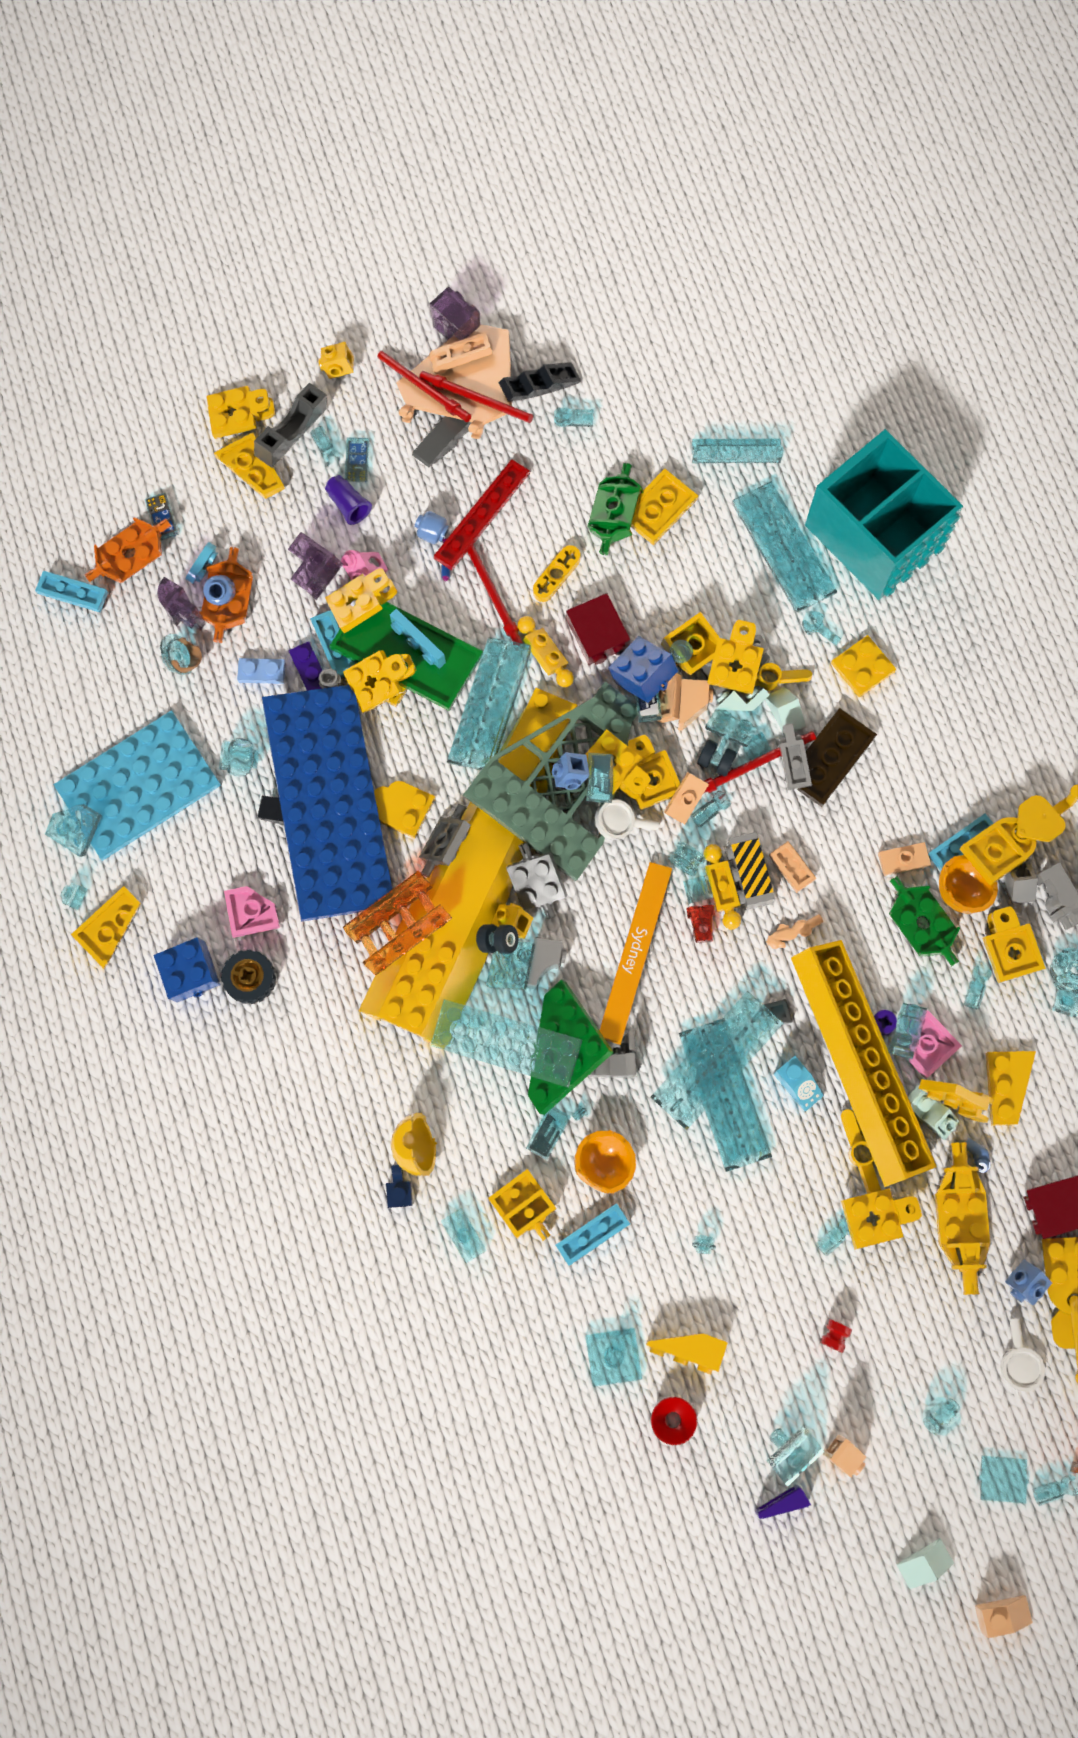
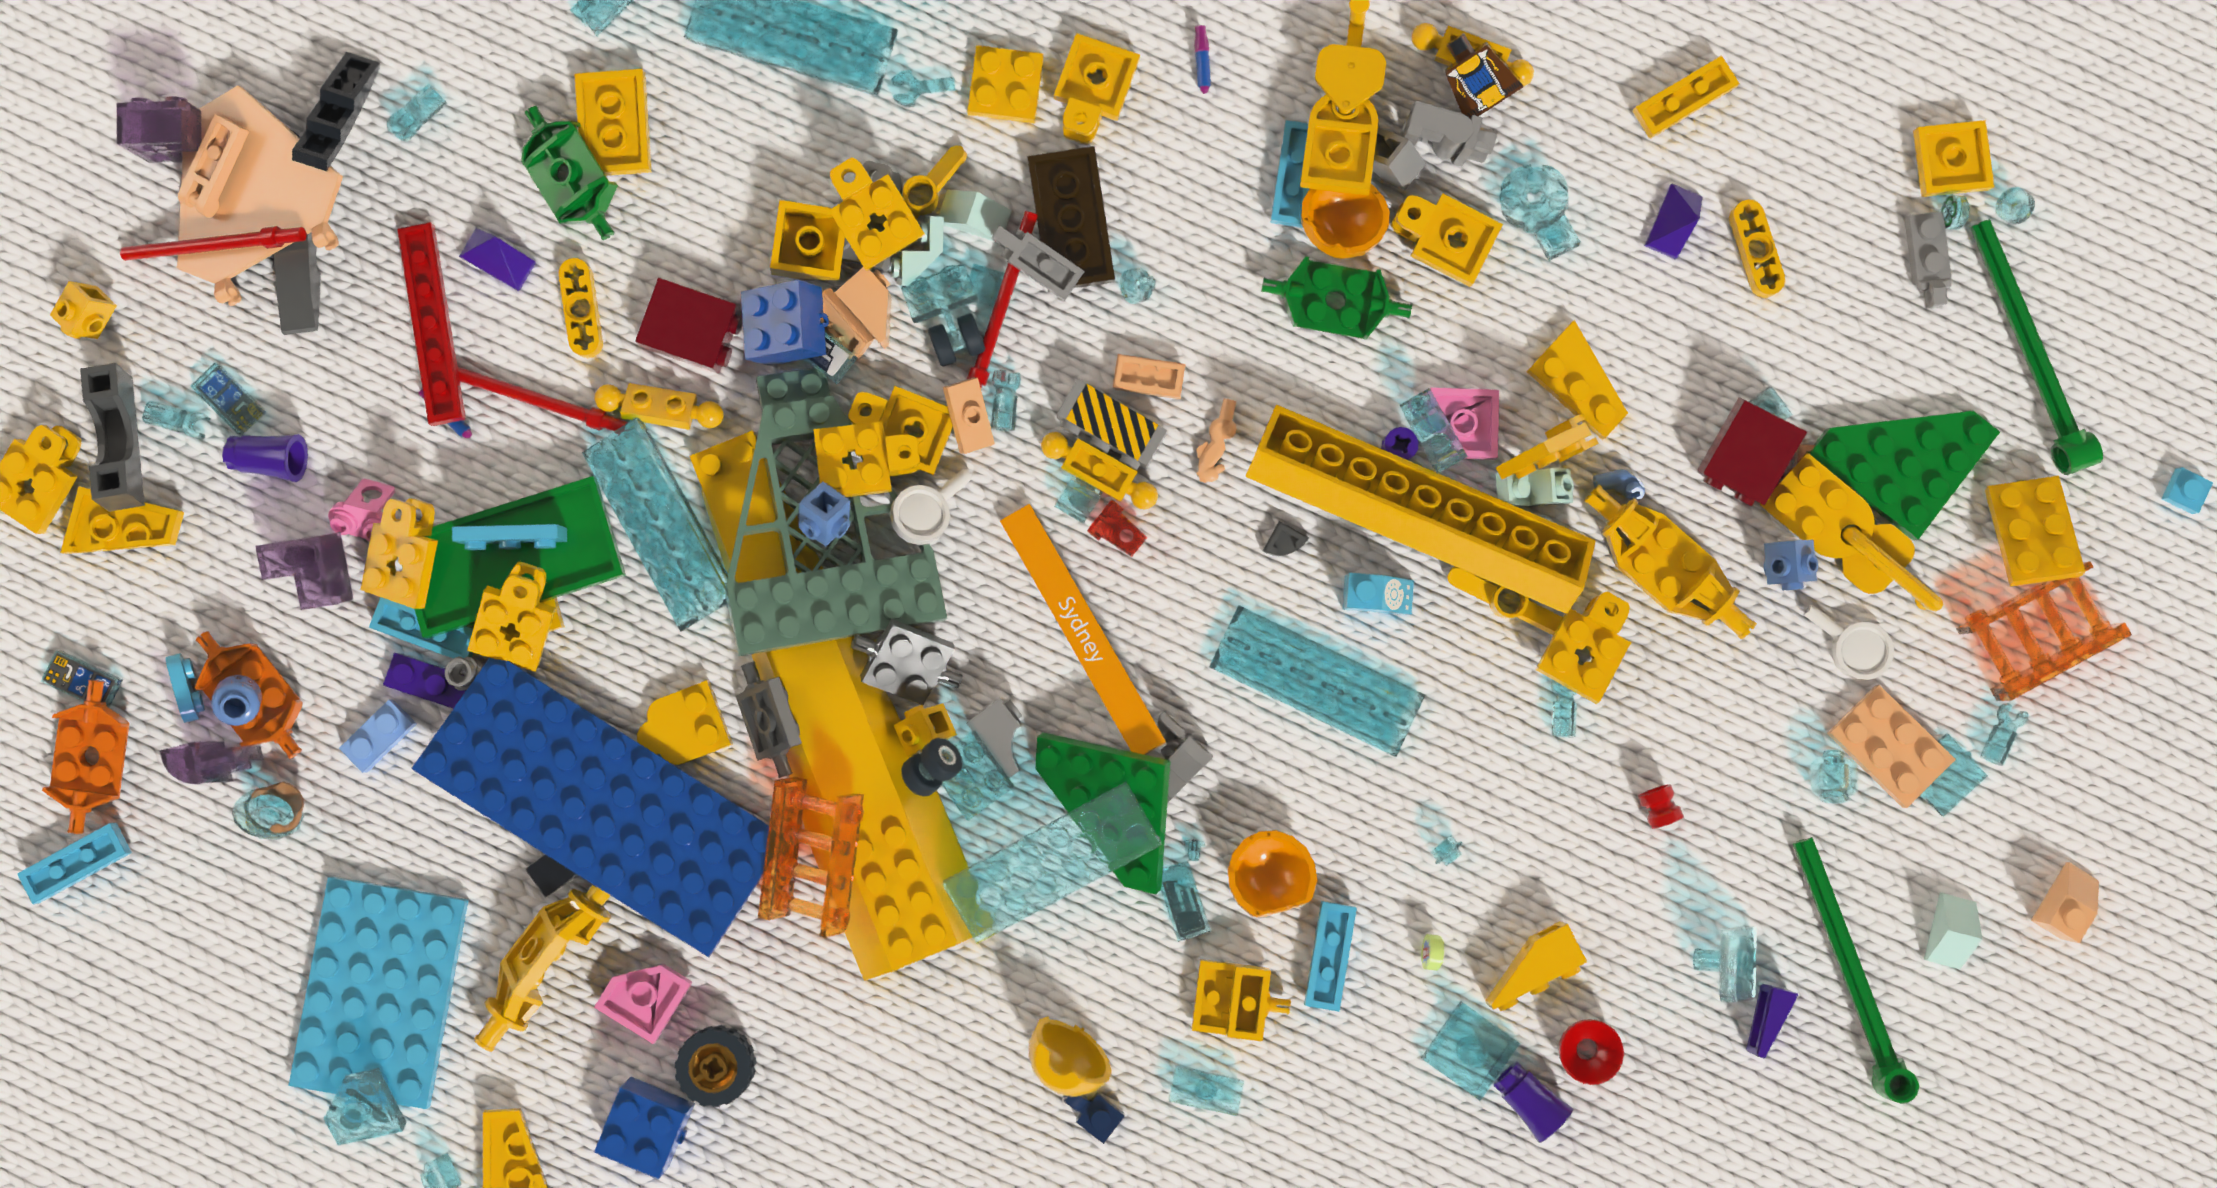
camera: 50 degrees left, 10 degrees up
(214, 838) = (531, 956): none -> yellow plate
(238, 757) = (455, 854): clear light blue piece -> none
(431, 527) = (392, 394): medium blue head -> none
(441, 382) = (229, 221): red bar -> none
(542, 515) = (497, 258): none -> dark purple slope
(601, 778) = (862, 489): clear light blue slope -> none
(618, 1413) = (1532, 1101): none -> dark purple plant
(645, 1286) = (1432, 952): none -> yellowish green tile
(681, 651) = (804, 264): clear light blue plate -> none
(686, 858) = (1034, 479): clear light blue wheel -> none
(716, 1060) = (1276, 657): clear light blue plate -> none
(830, 818) = (1136, 285): none -> clear light blue tile
(845, 1456) = (1782, 913): light nougat slope -> none
(849, 1531) = (1887, 1063): none -> green piece
(895, 711) = (1091, 101): none -> yellow plate
(904, 859) = (1251, 251): light nougat plate -> none
(976, 989) = (1455, 314): clear light blue bar -> none
(977, 740) = (1201, 50): none -> piece
(988, 1433) = (1891, 746): none -> light nougat plate

